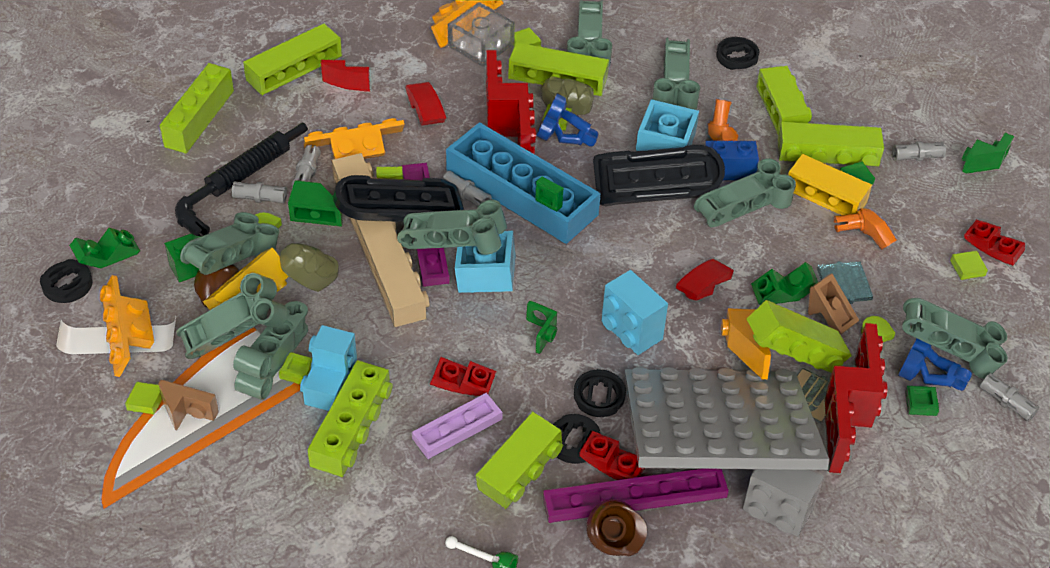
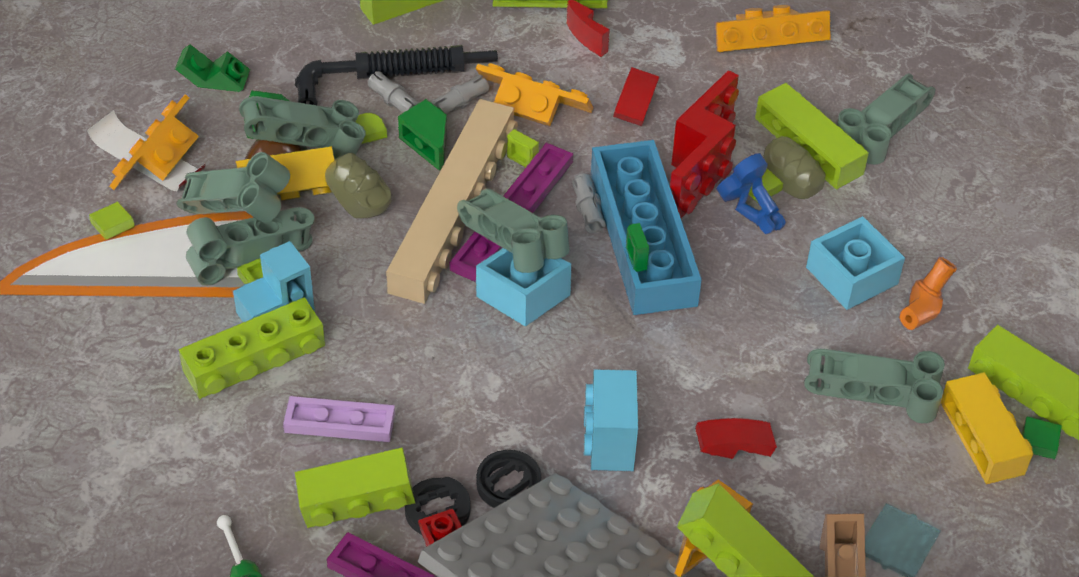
camera: 40 degrees right, 0 degrees up
(67, 292) = (152, 92): black piece -> none
(185, 400) = (128, 241): medium nougat slope -> none
(393, 199) = (484, 162): black piece -> none
(458, 378) = (393, 379): red slope -> none
(479, 31) = (761, 55): clear brick -> none
(527, 36) = (812, 87): lime tile -> none
(549, 326) = (519, 384): green bracket -> none
(657, 174) = (793, 299): black piece -> none
(675, 85) = (930, 216): sand green piece -> none
(737, 44) = (1046, 215): black piece -> none
(738, 157) = (895, 330): blue hinge -> none
(782, 96) = (1039, 301): lime brick -> none
(785, 289) = (812, 499): green slope -> none
(869, 224) = (992, 496): orange arm -> none

